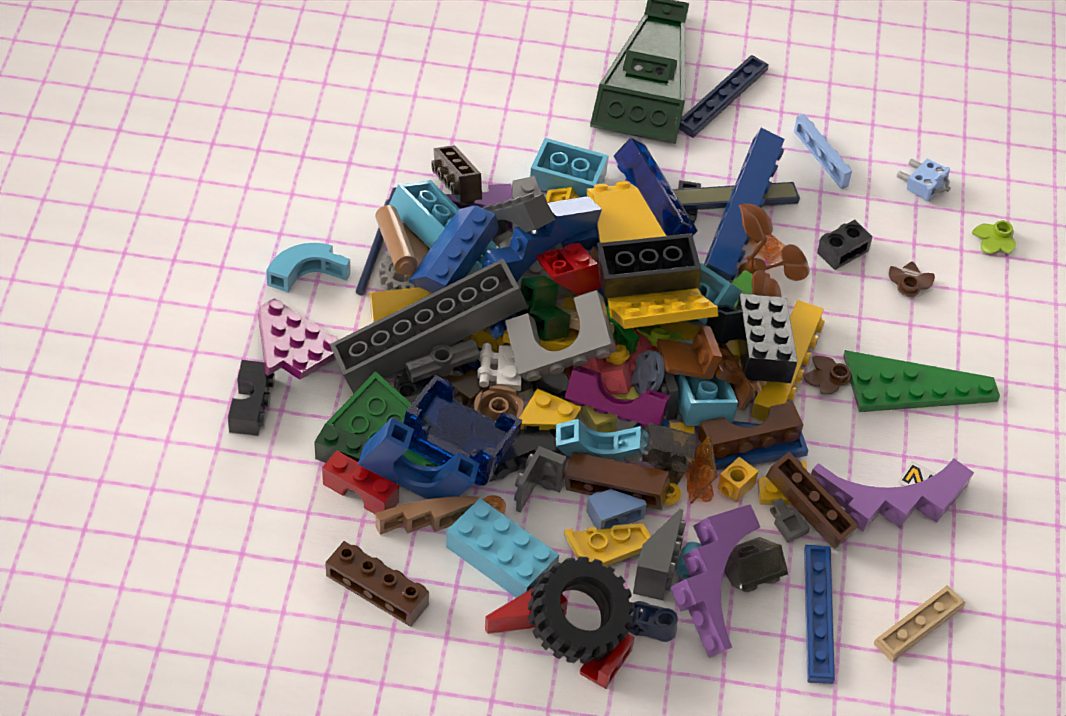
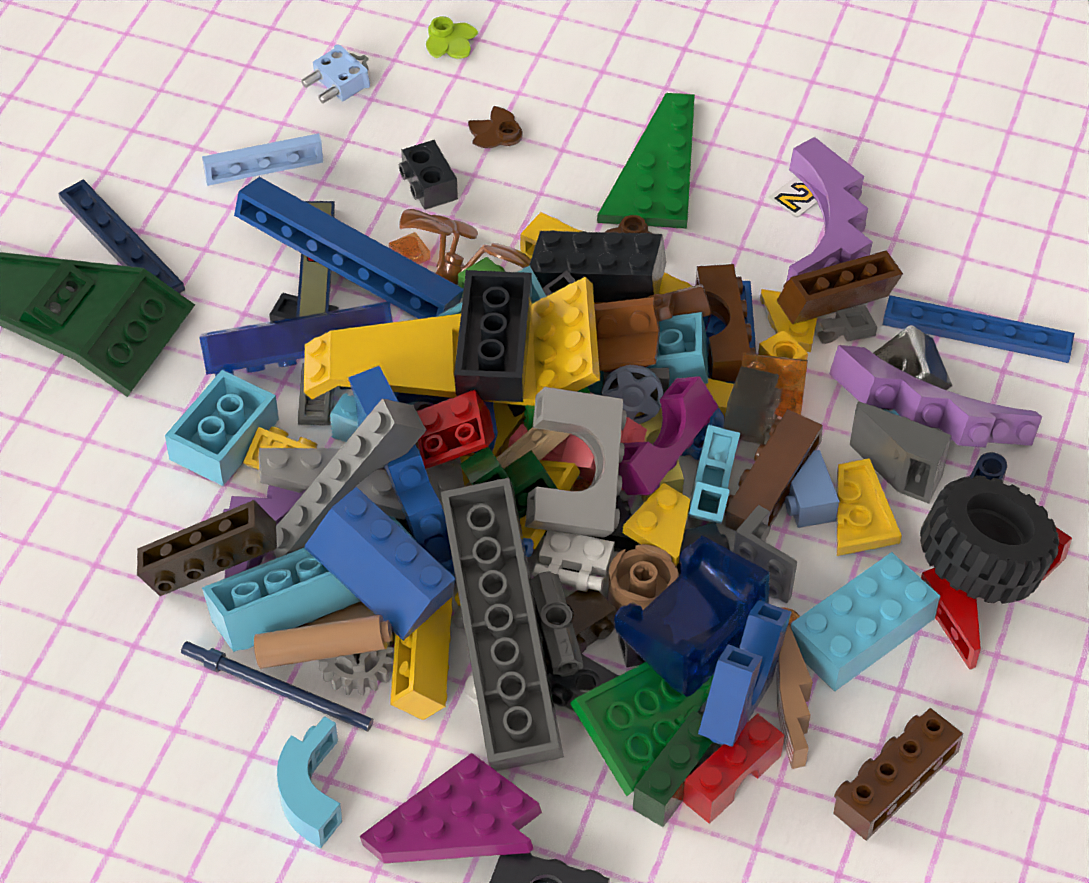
camera: 75 degrees left, 0 degrees up
(919, 623) = (1000, 244): tan tile -> none

